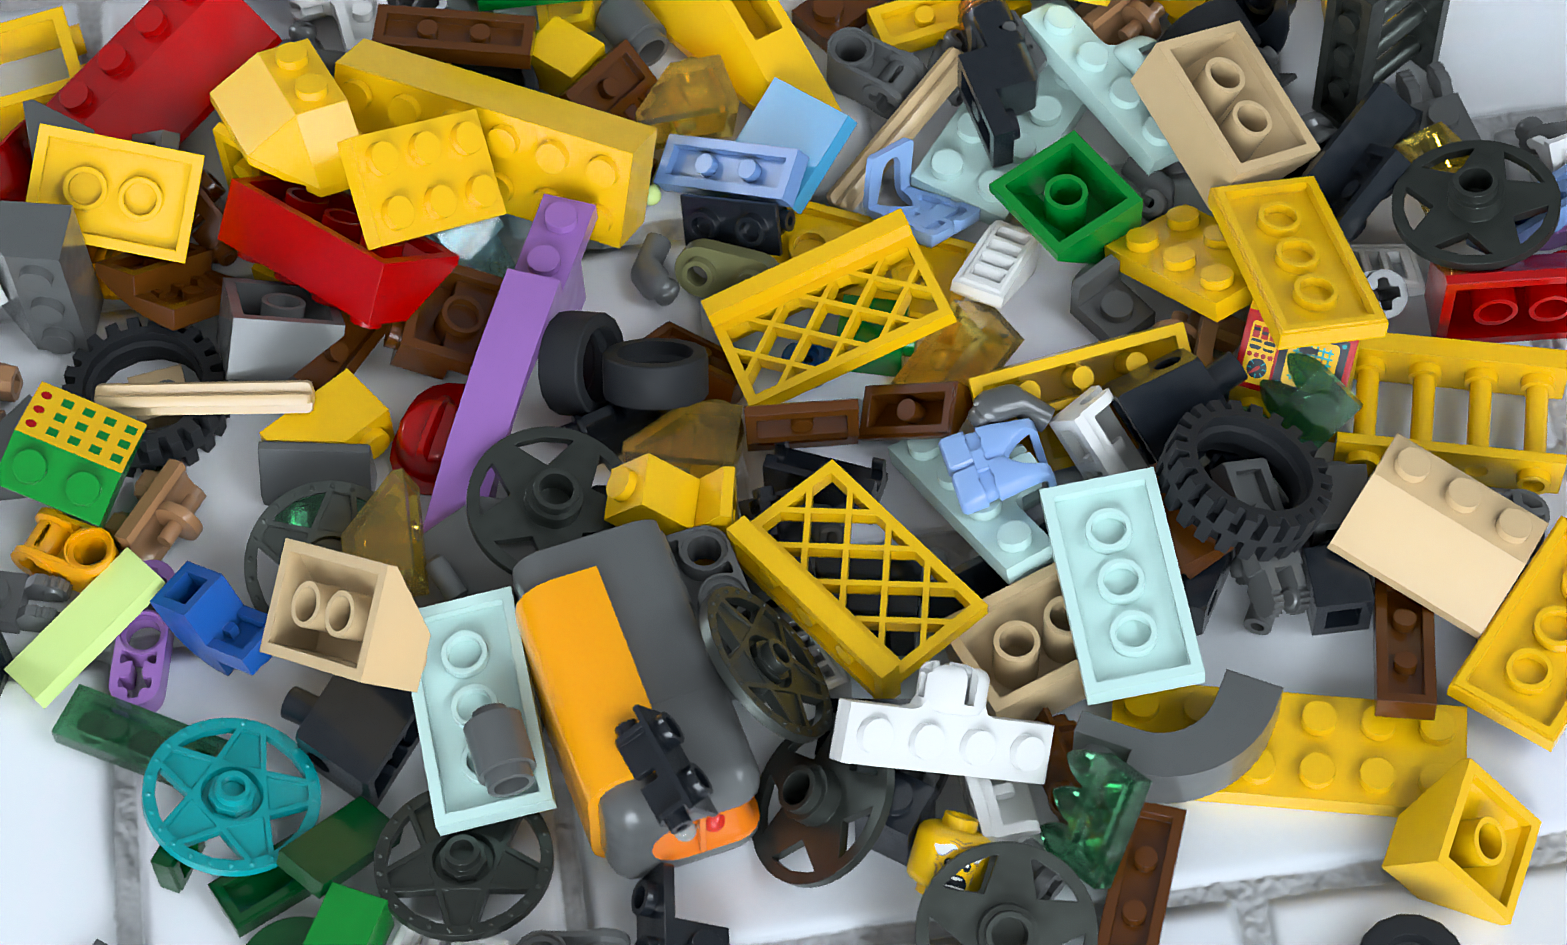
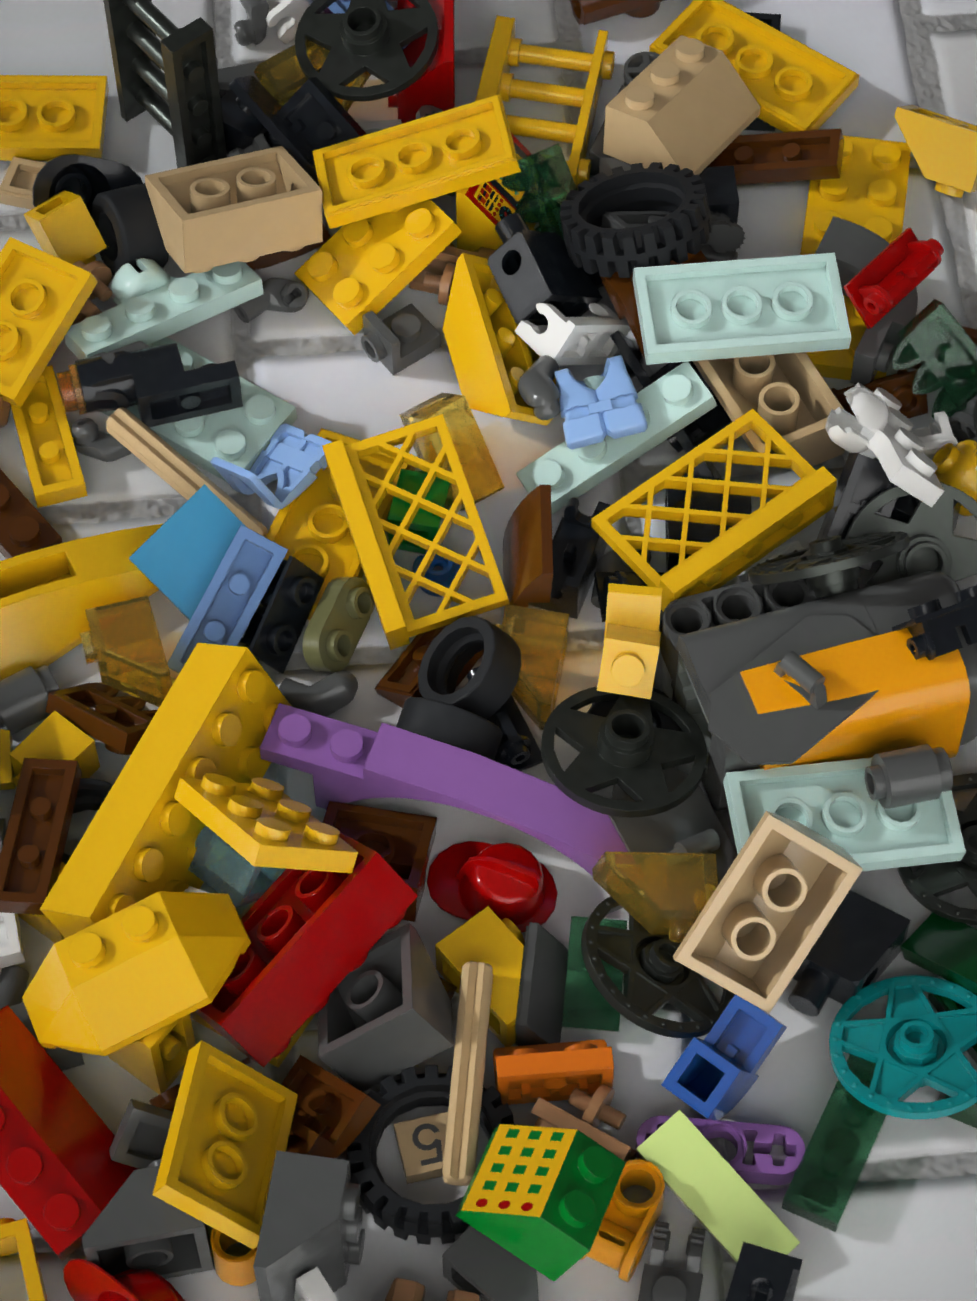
camera: 90 degrees left, 0 degrees up
(225, 483) = (551, 1070): none -> orange bracket
(520, 607) = (791, 732): none -> dark grey shield
(871, 70) = (112, 496): dark grey piece -> none
(914, 410) = (516, 470): reddish brown slope -> none
(998, 265) = (354, 405): white slope -> none
(1070, 200) = (299, 338): green slope -> none
(1177, 732) = (892, 275): none -> red hinge

